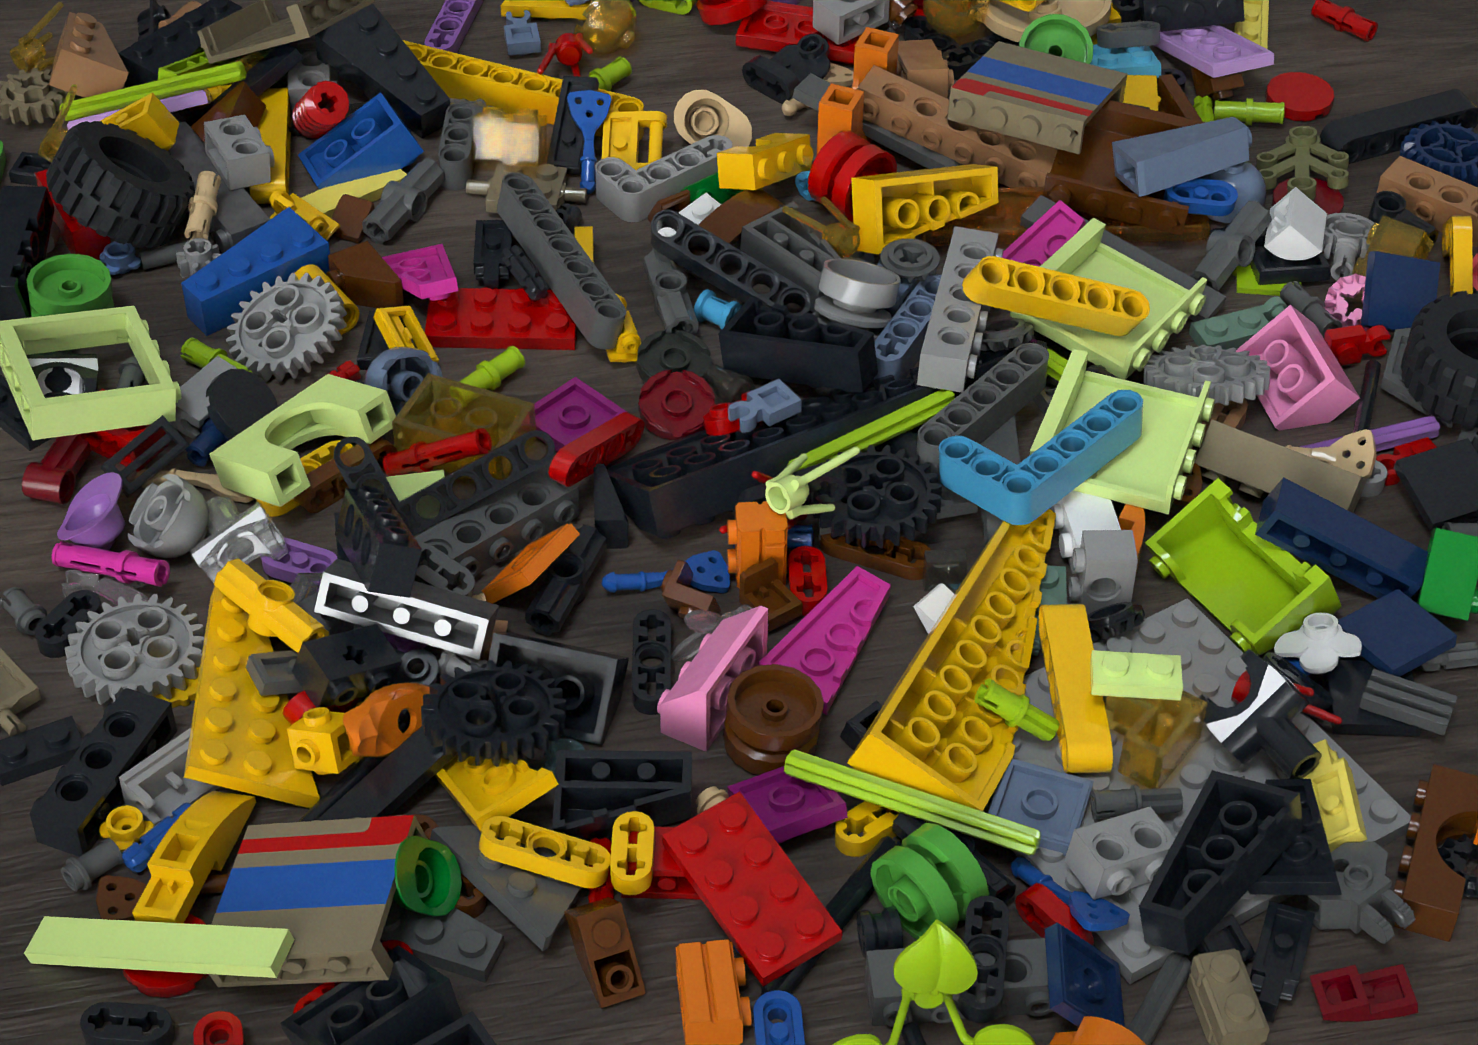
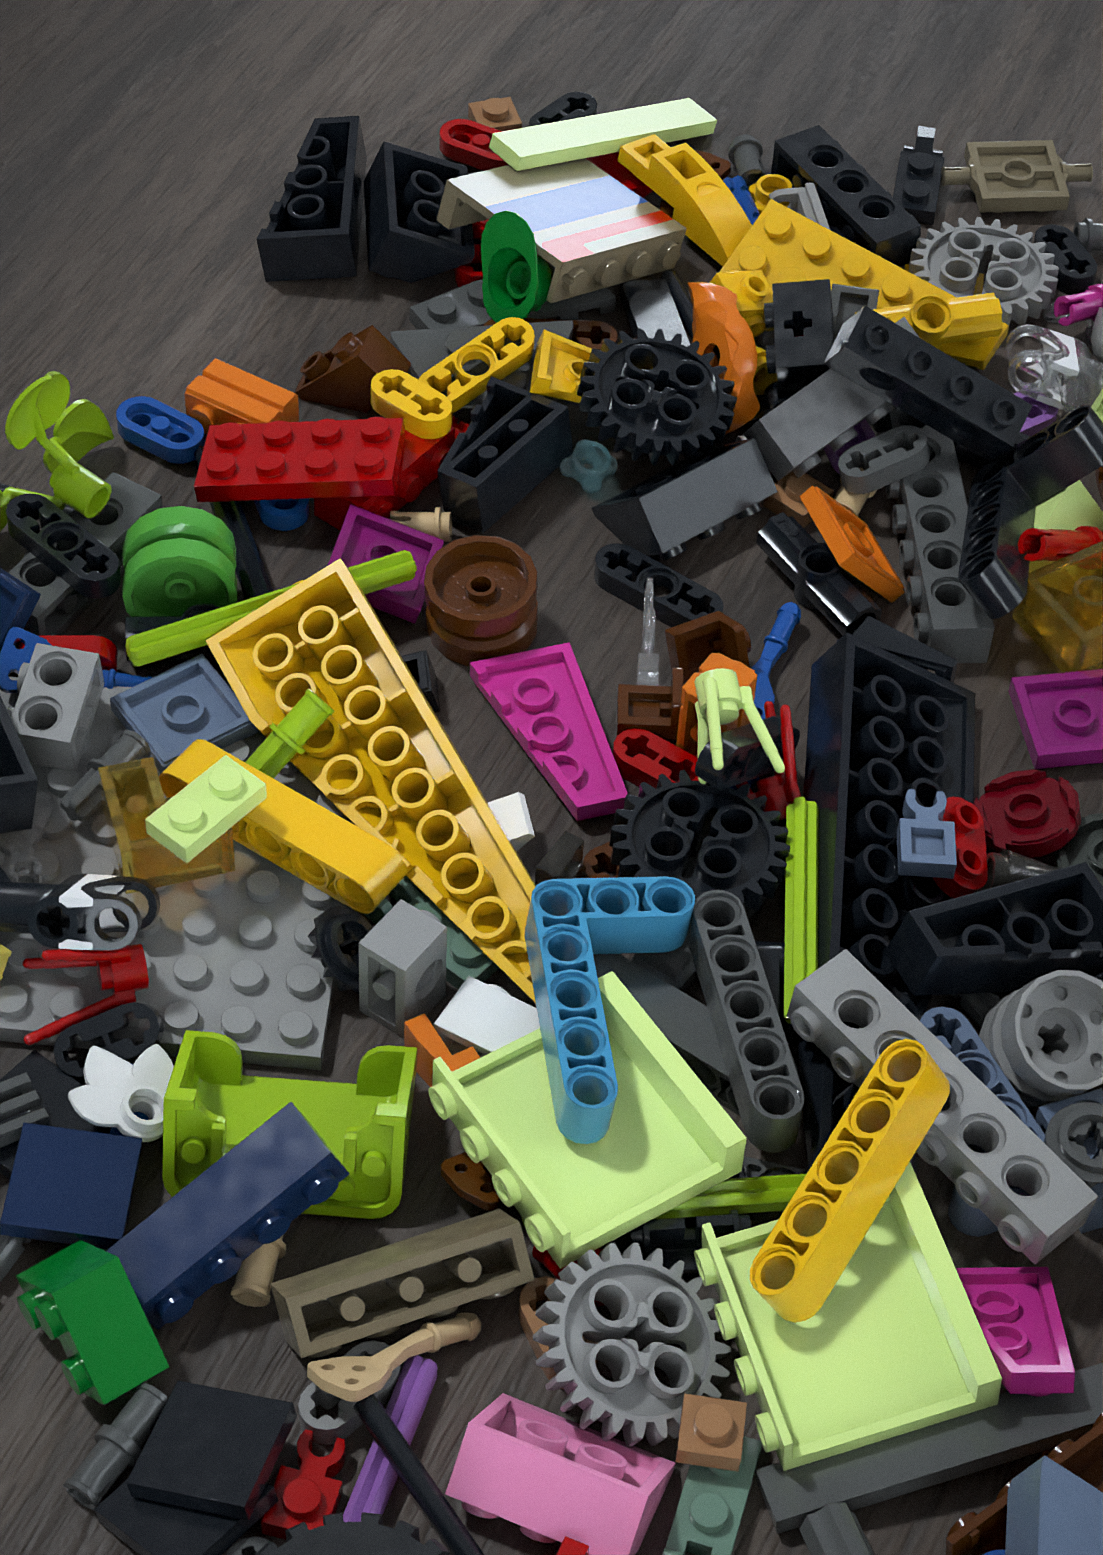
camera: 125 degrees right, 5 degrees up
(597, 446) = (982, 675): red beam -> none
(697, 702) = (576, 596): bright pink slope -> none
(1217, 326) = (711, 1432): none -> medium nougat plate

